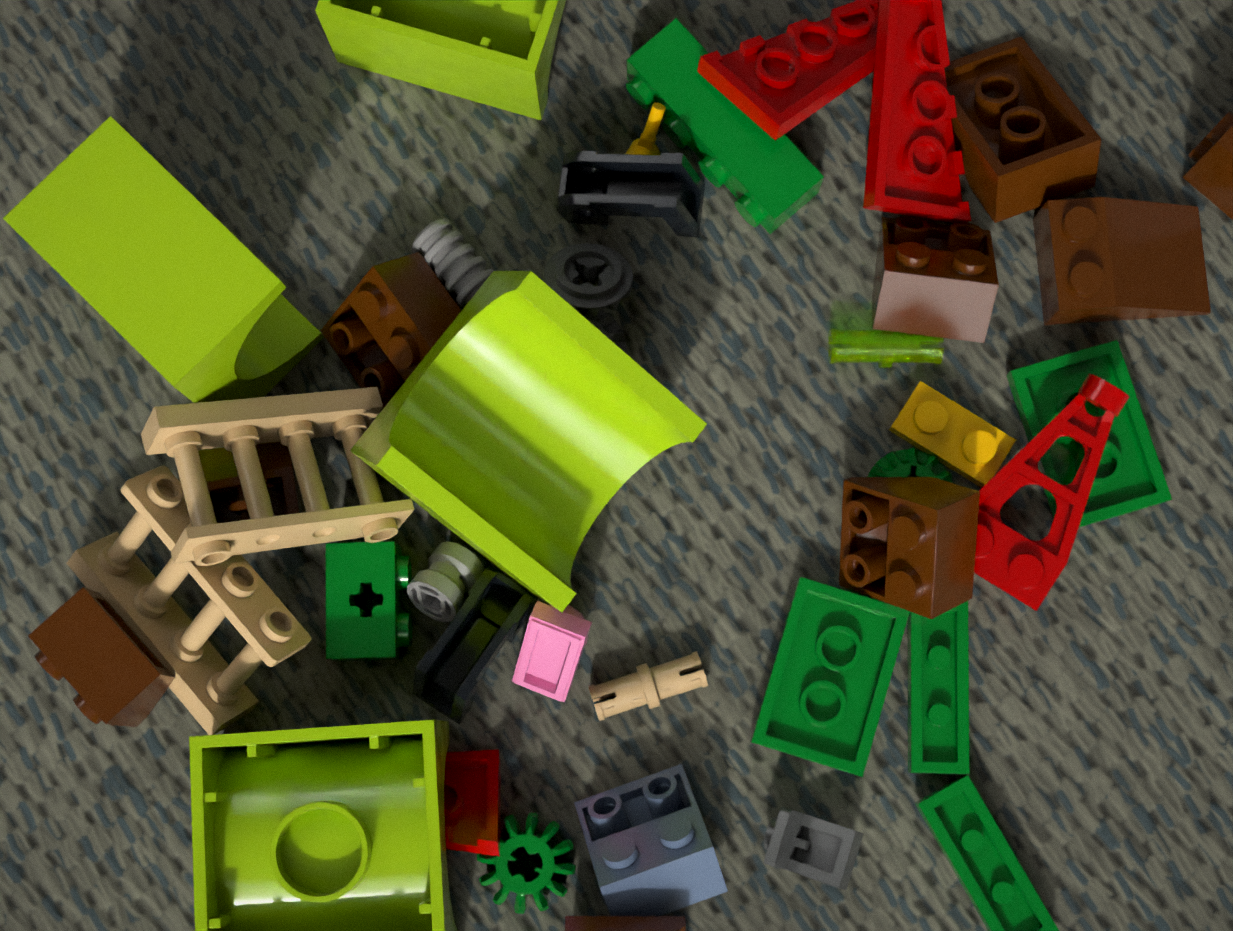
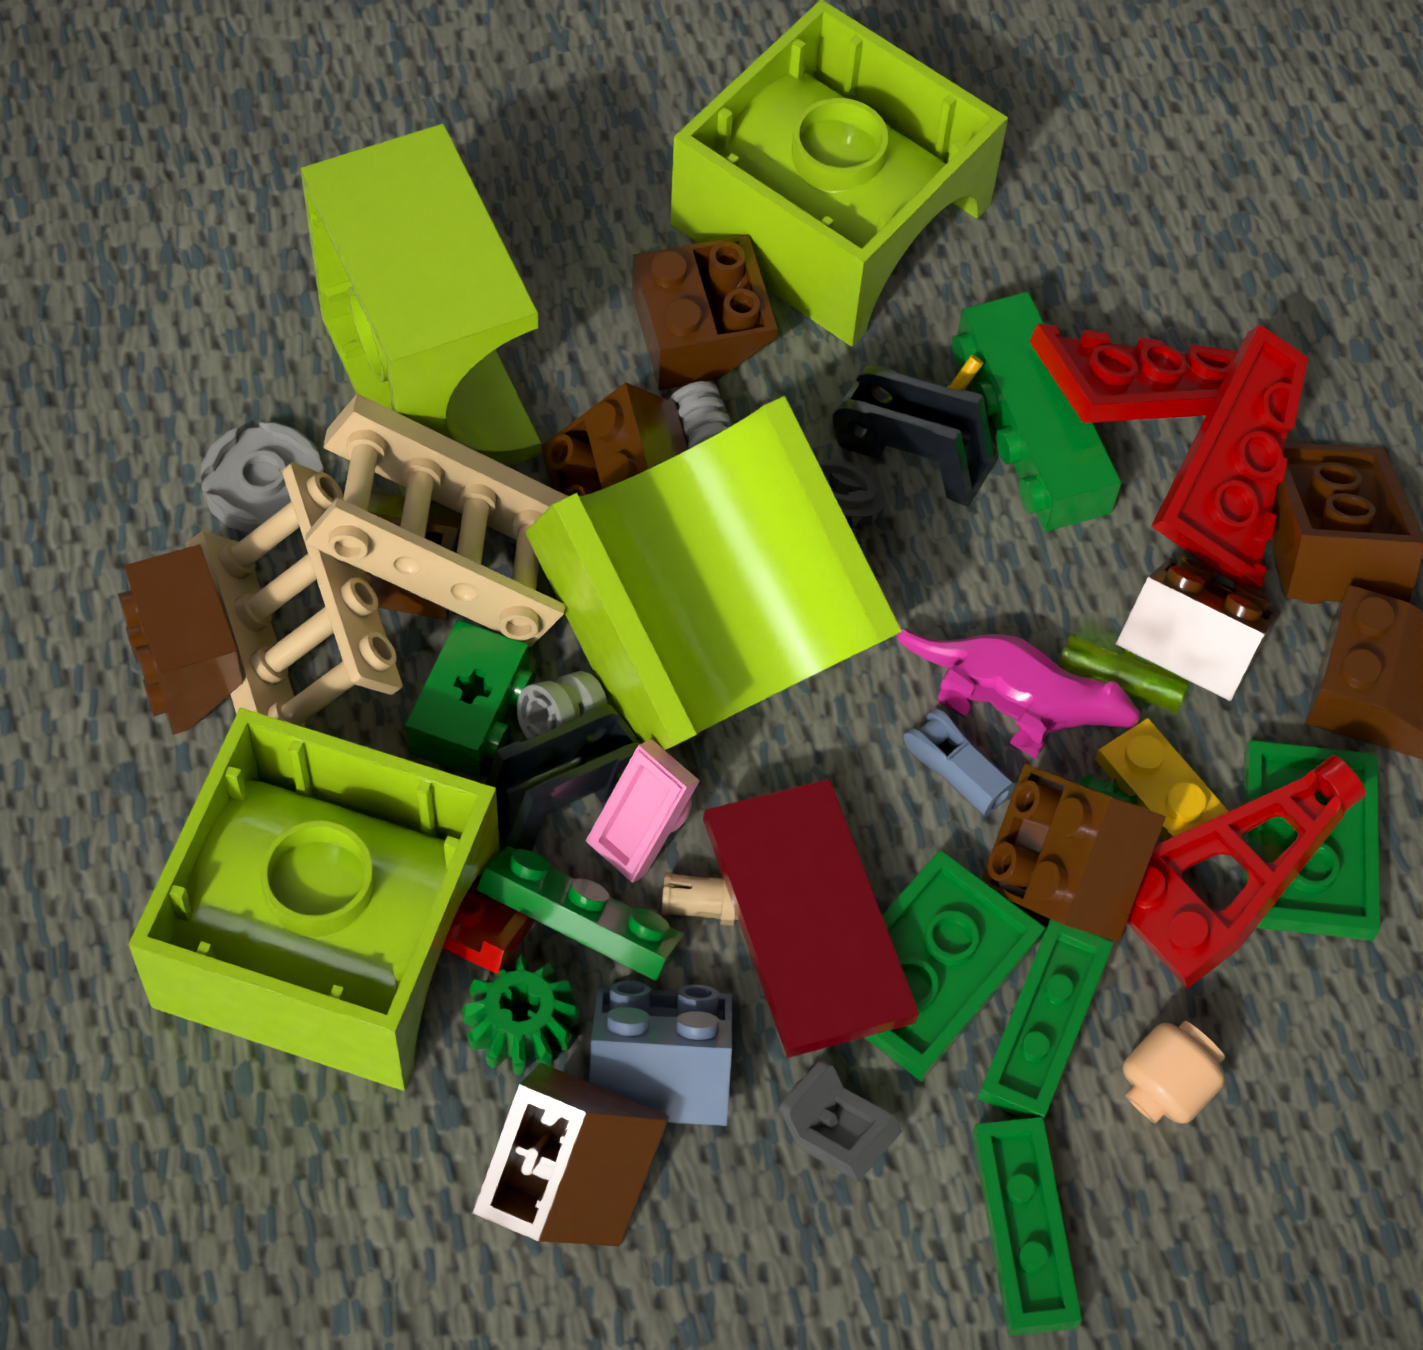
camera: 15 degrees right, 20 degrees down
(98, 485) = (253, 497): none -> light grey tile
(403, 147) = (701, 309): none -> reddish brown slope
(537, 754) = (581, 911): none -> green plate
(722, 687) = (809, 918): none -> dark red tile
(792, 489) = (964, 768): none -> sand blue bar
(808, 395) = (1022, 686): none -> dark pink animal
(1054, 692) = (1173, 1073): none -> light nougat head

